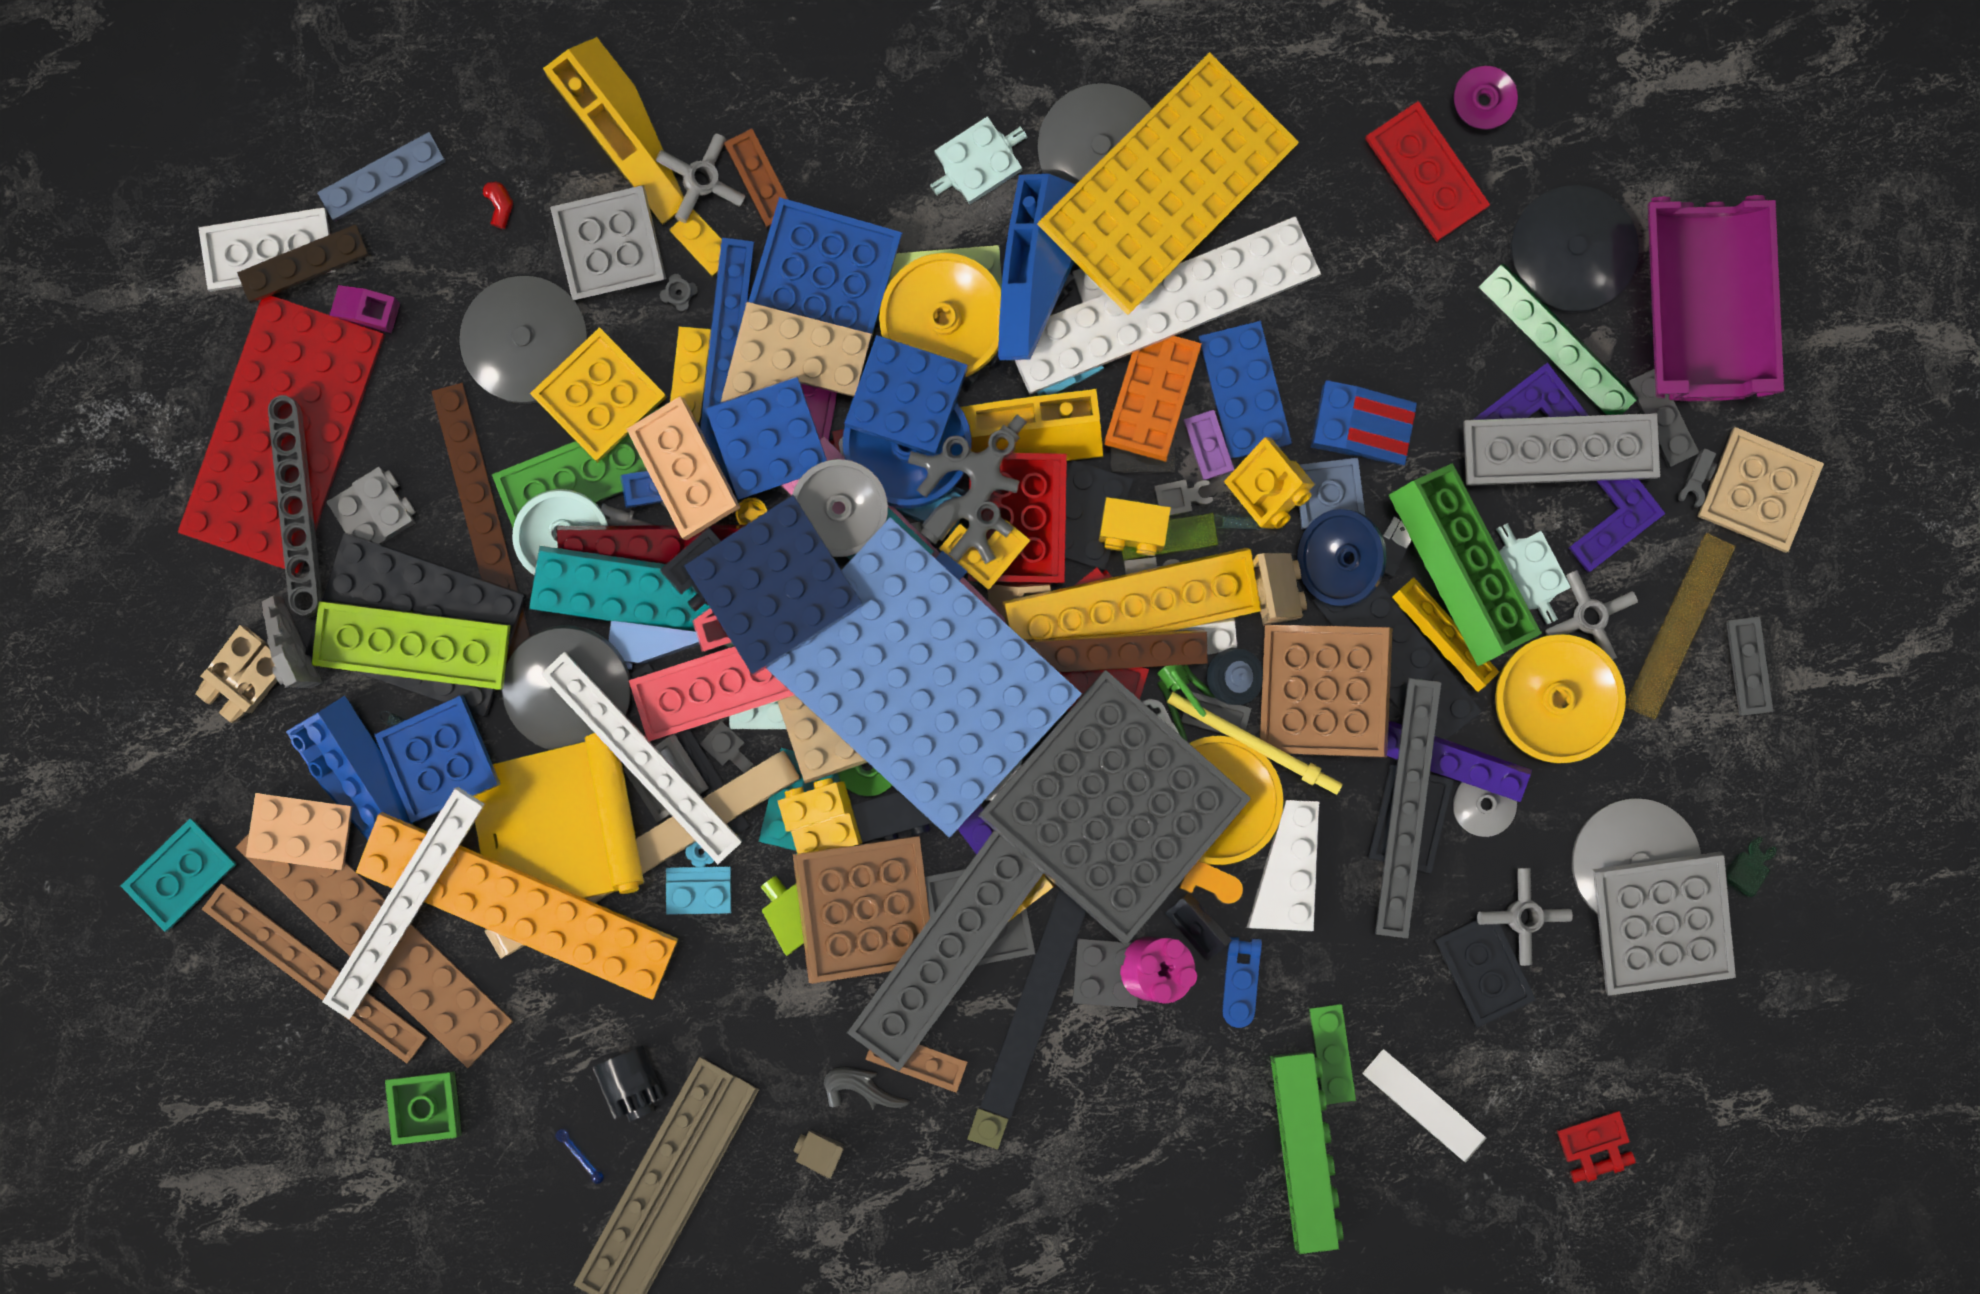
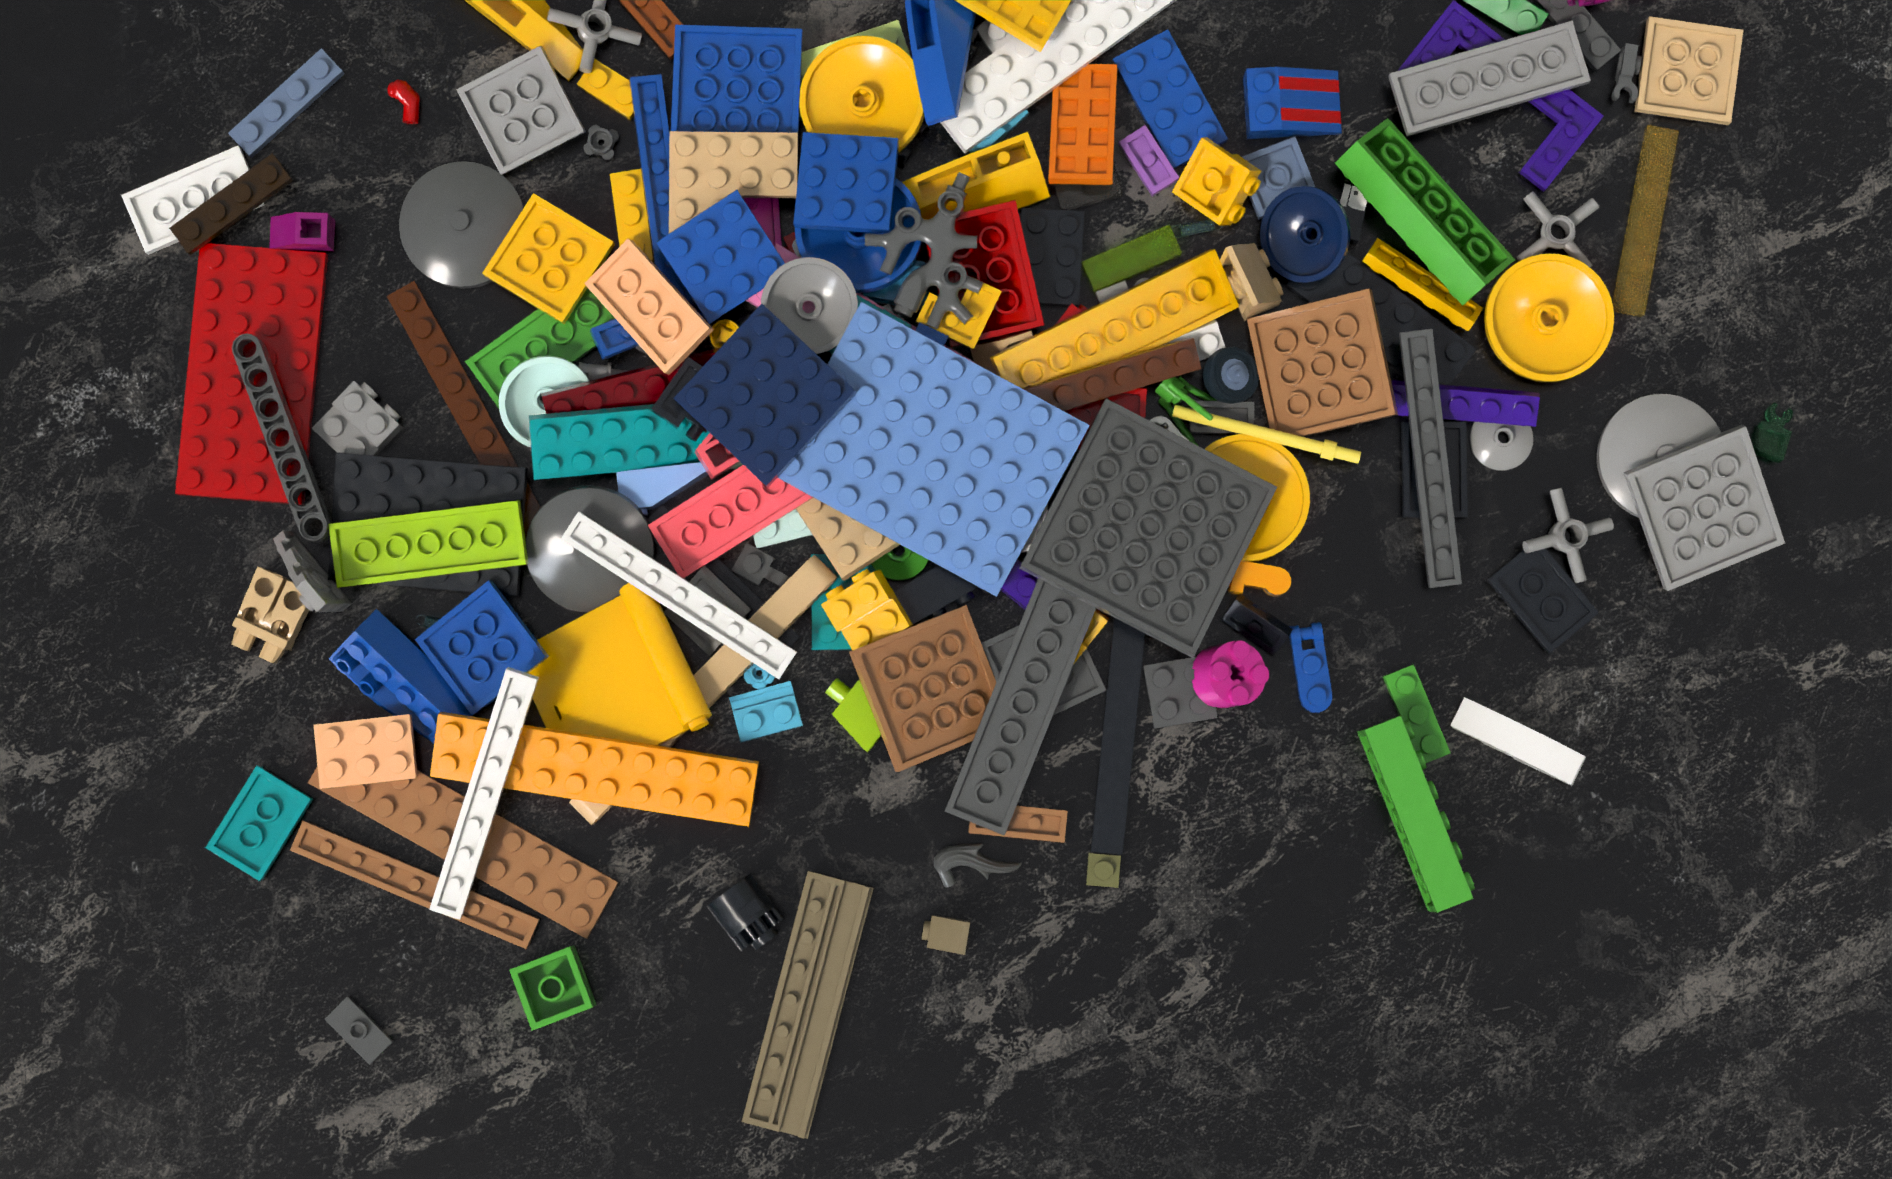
camera: 10 degrees left, 0 degrees up
(225, 1101) = (359, 1030): none -> dark grey plate
(563, 1136) = (694, 981): clear blue hinge -> none
(1134, 526) = (1098, 253): yellow brick -> none
(1180, 497) = (1131, 219): light grey plate -> none
(1289, 875) = (1332, 553): white wedge -> none
(1533, 570) = (1491, 201): light aqua plate -> none
(1593, 1137) = (1688, 730): red plate -> none
(1749, 666) = (1721, 242): dark grey plate -> none

